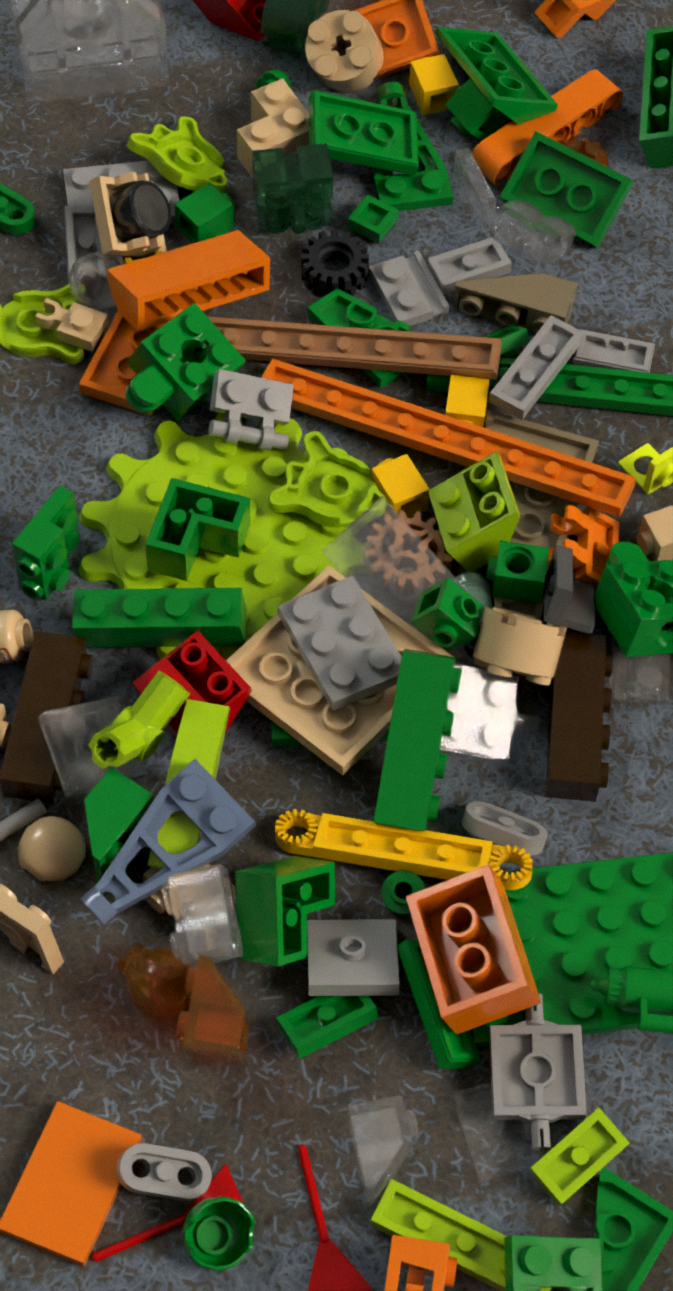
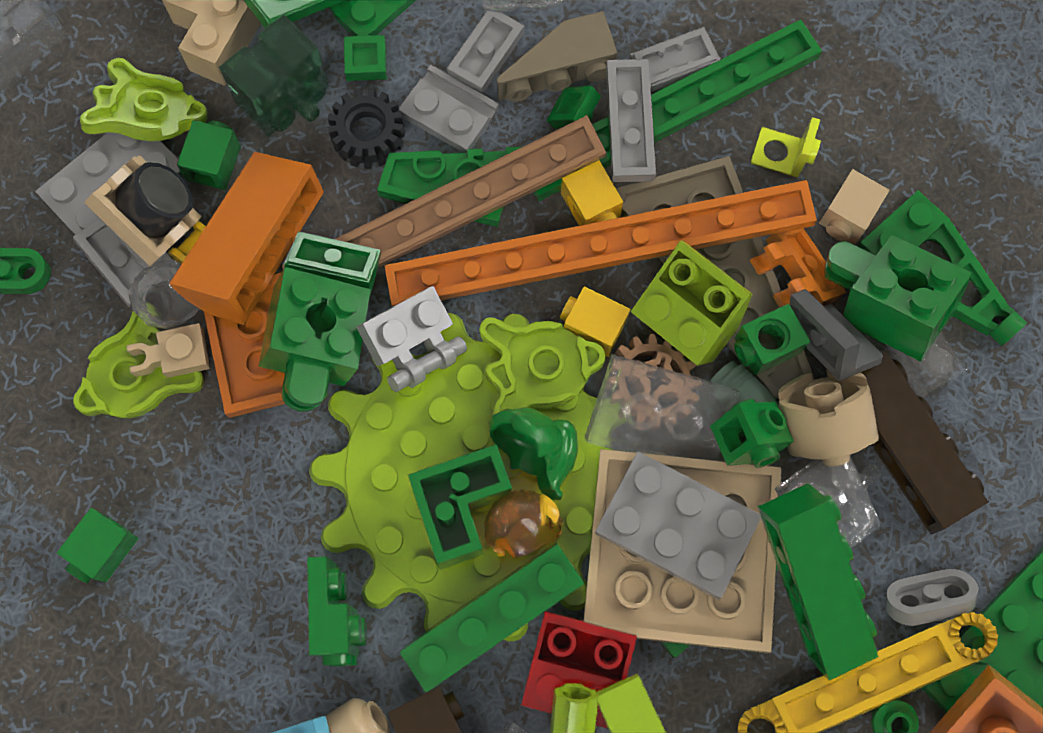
camera: 35 degrees left, 15 degrees up
(229, 563) = (522, 523): none -> clear orange hair
(240, 332) = (334, 259): none -> green slope
(282, 529) = (536, 446): none -> green hair

